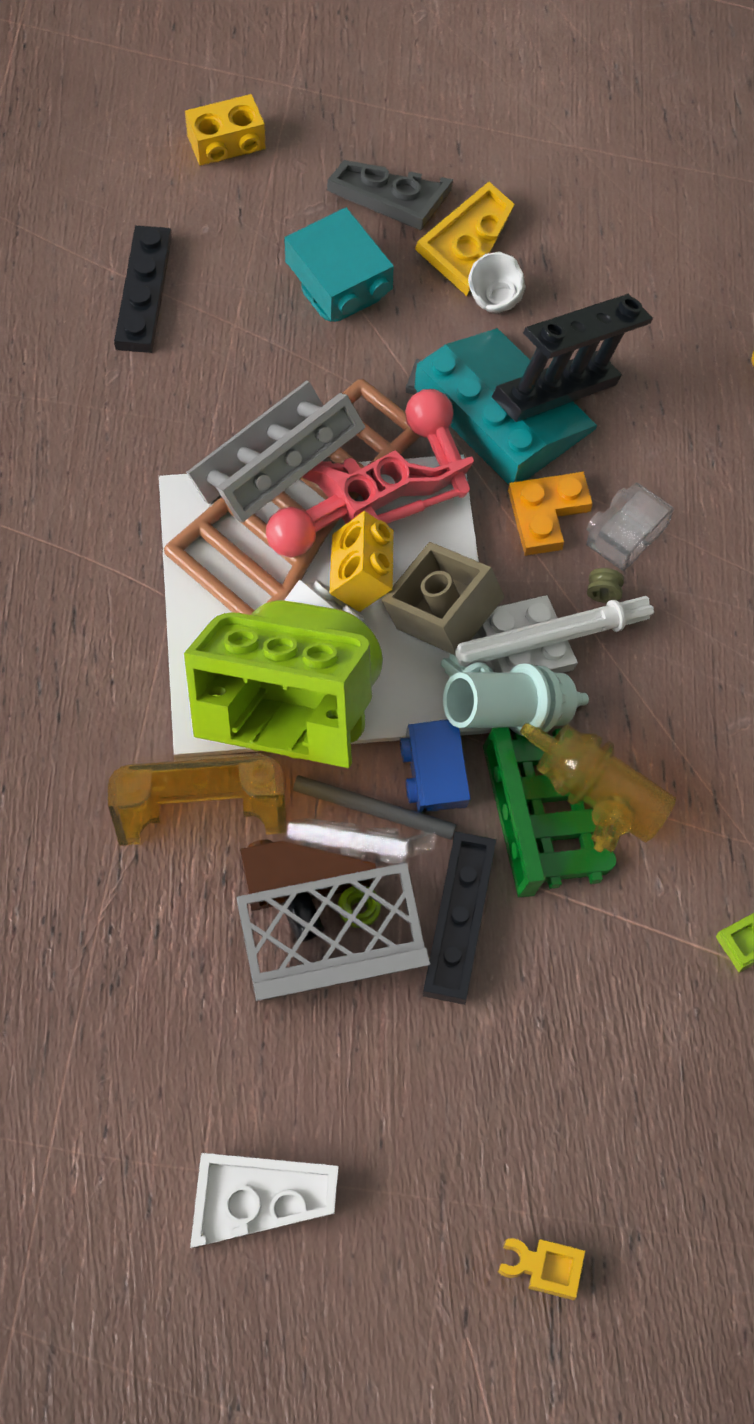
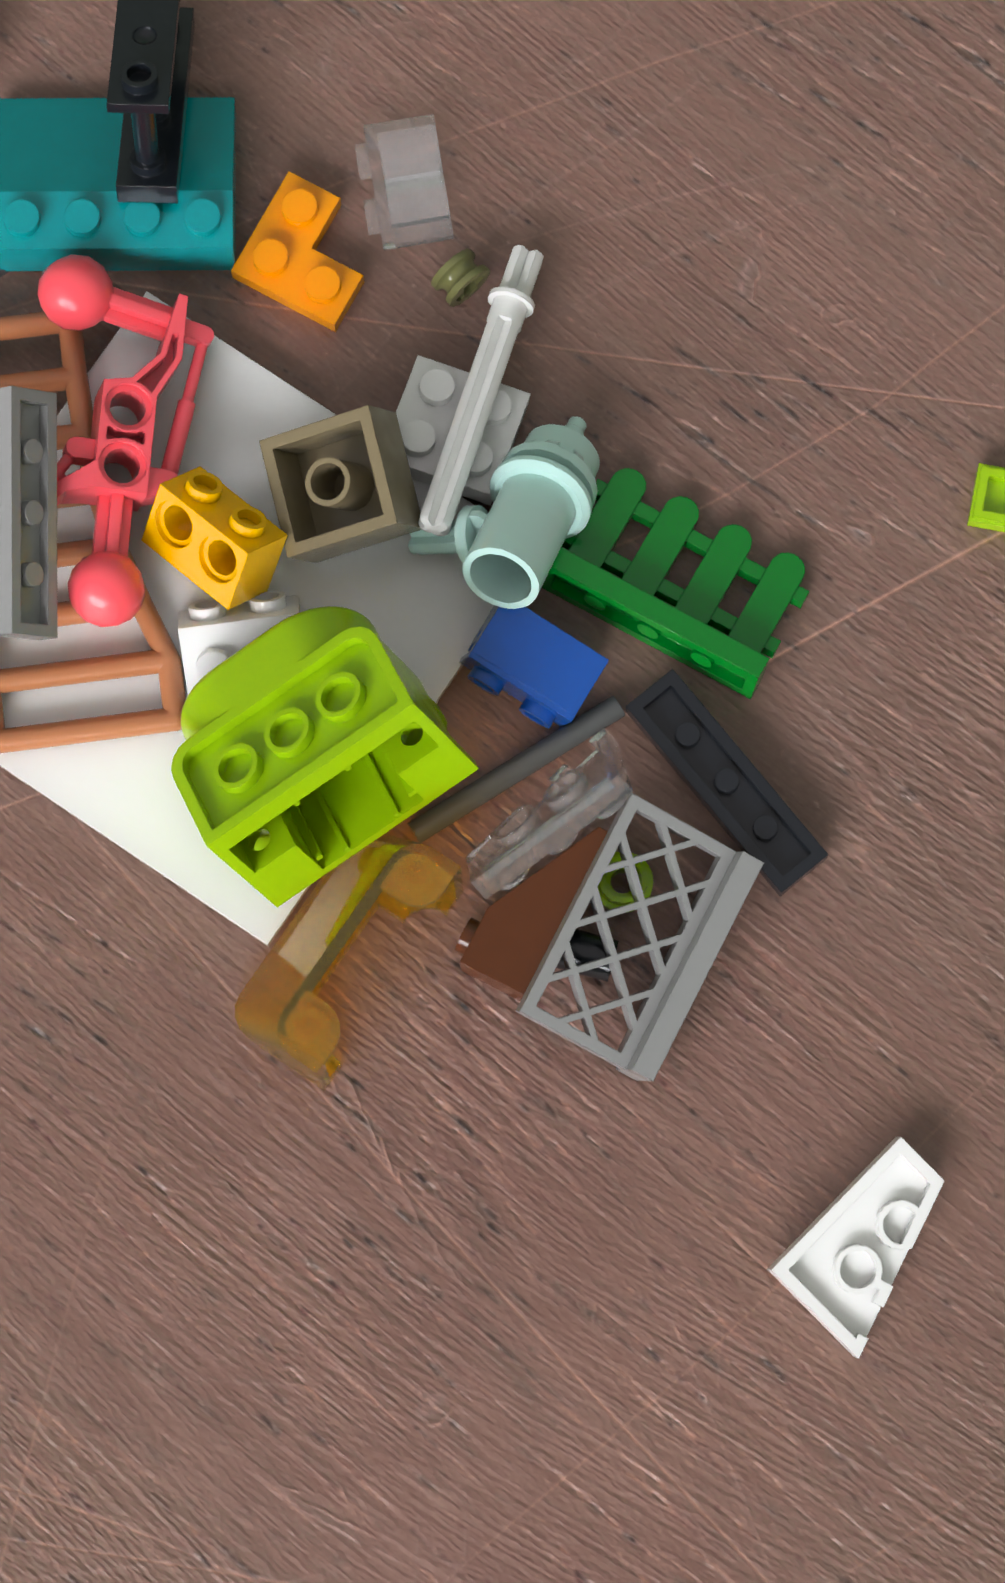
camera: 45 degrees left, 15 degrees up
(592, 774) = (687, 502): clear yellow piece -> none

